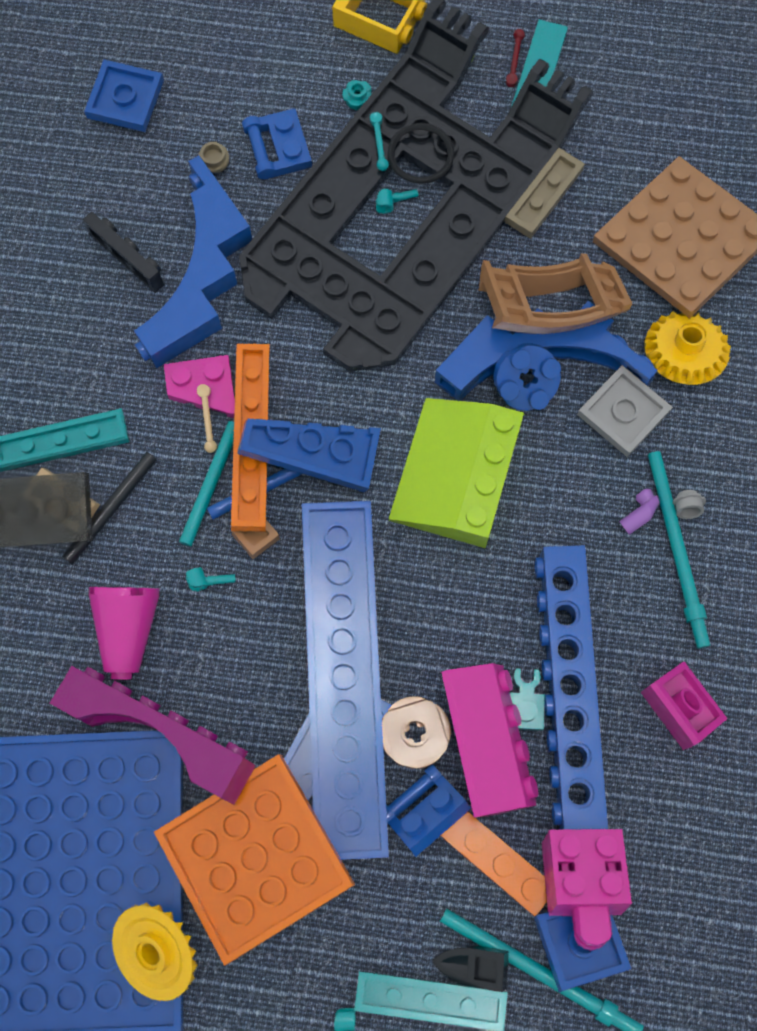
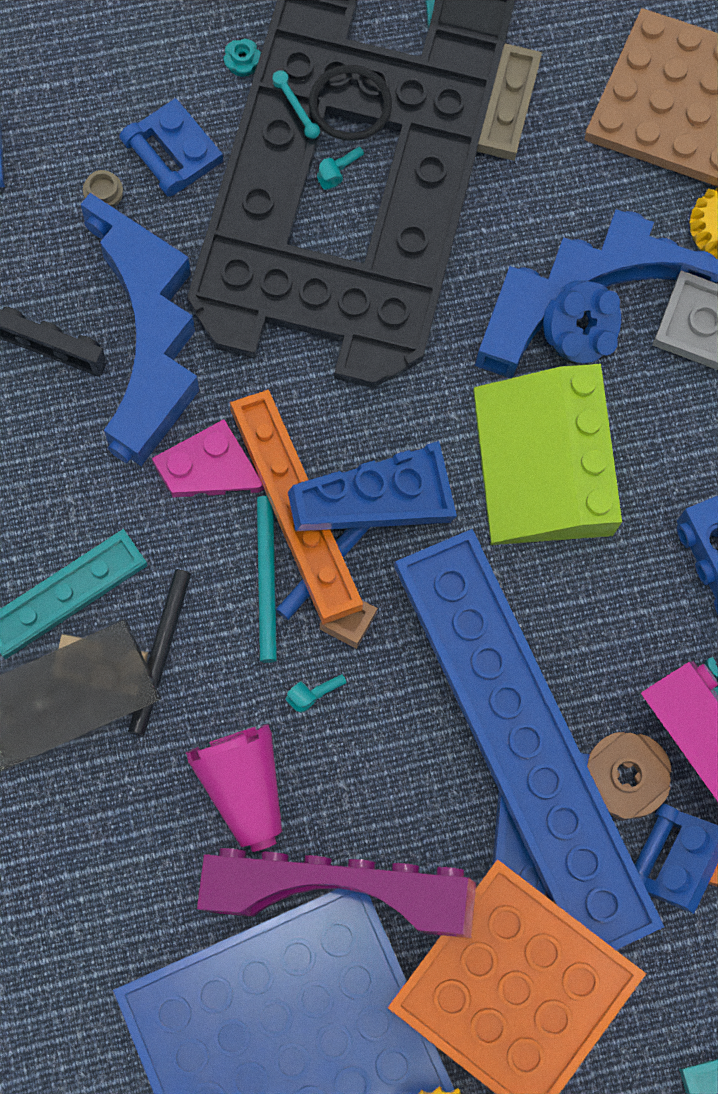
camera: 30 degrees left, 0 degrees up
(204, 391) = (216, 472): tan hinge -> none
(512, 285) = (523, 218): medium nougat wedge -> none

